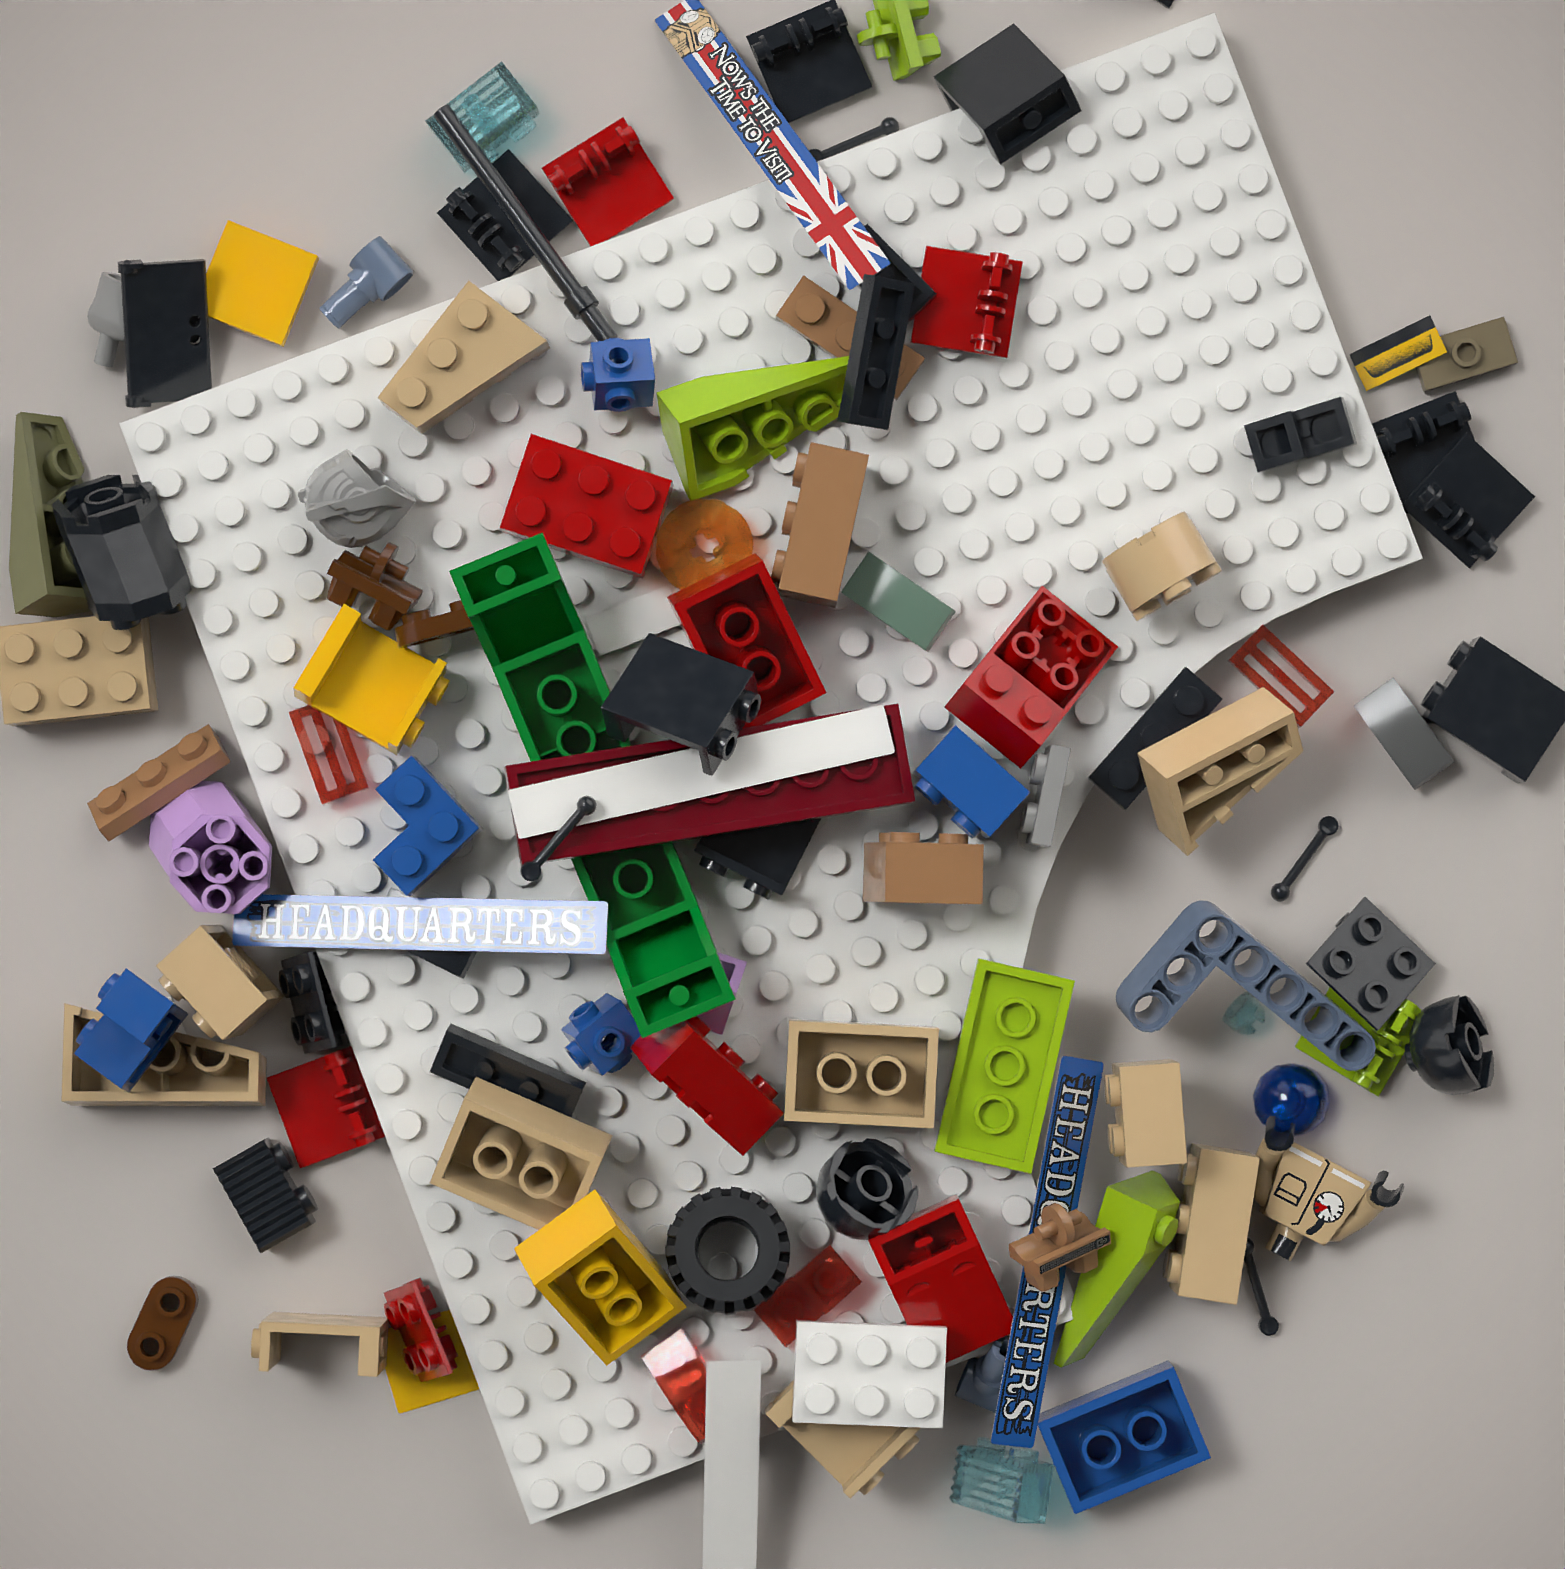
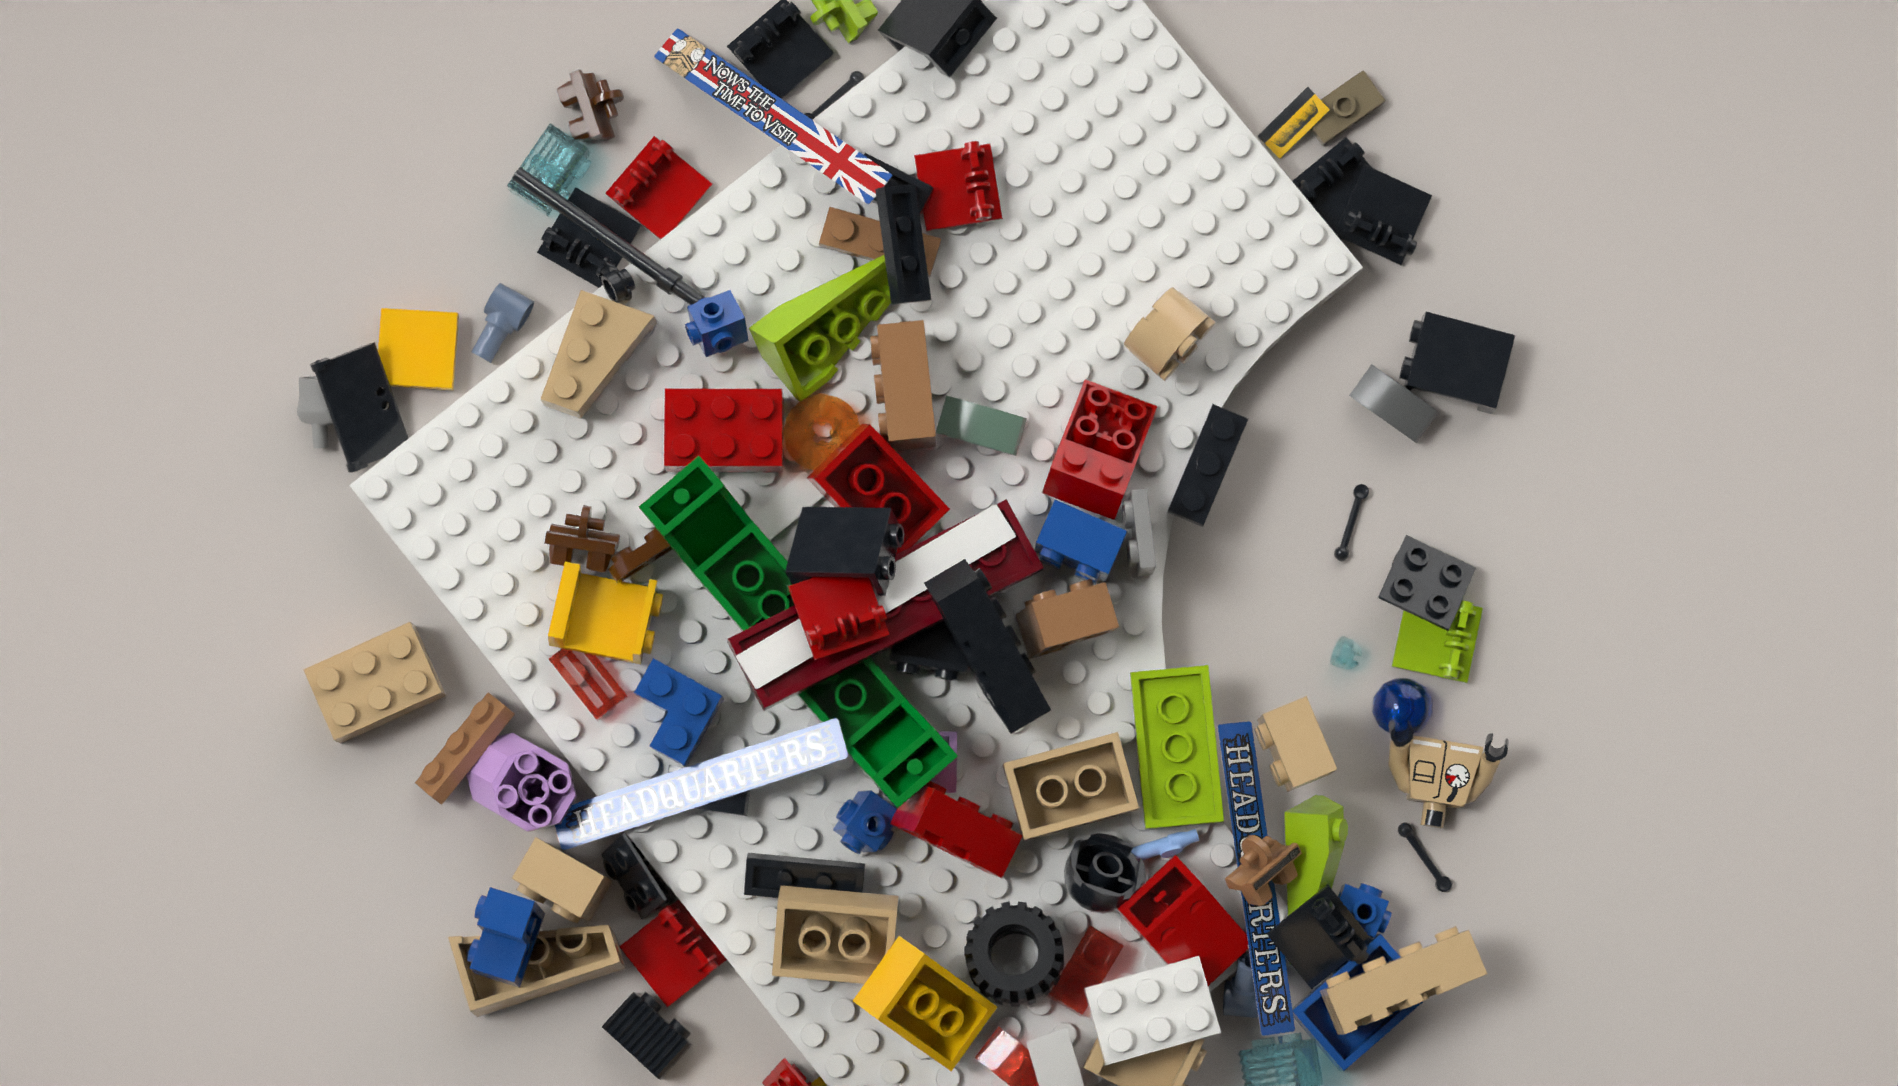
camera: 20 degrees left, 5 degrees down
(39, 561) = (328, 591): olive wedge -> none
(122, 550) = (382, 579): black brick -> none
(353, 502) = (546, 484): light grey helmet -> none
(518, 287) = (618, 284): none -> black plate
(531, 869) = (773, 709): black hinge -> none
(564, 56) = (596, 104): none -> reddish brown hips
(647, 779) = (838, 613): none -> red hinge
(818, 874) = (988, 644): none -> black wedge
(951, 1179) = (1165, 846): none -> light blue piece
(1101, 1348) = (1320, 937): none -> black hinge
(1143, 1319) = (1371, 900): none -> blue brick
(1180, 1434) = (1403, 981): none -> tan wedge
(1212, 1223) = (1373, 816): tan brick -> none
(1216, 762) = (1259, 466): tan wedge -> none
(1249, 647) = (1278, 401): clear red tile -> none
(1255, 976) = (1342, 617): sand blue beam -> none
(1300, 434) = (1240, 204): black slope -> none
(1448, 1047) = (1506, 626): black cylinder -> none

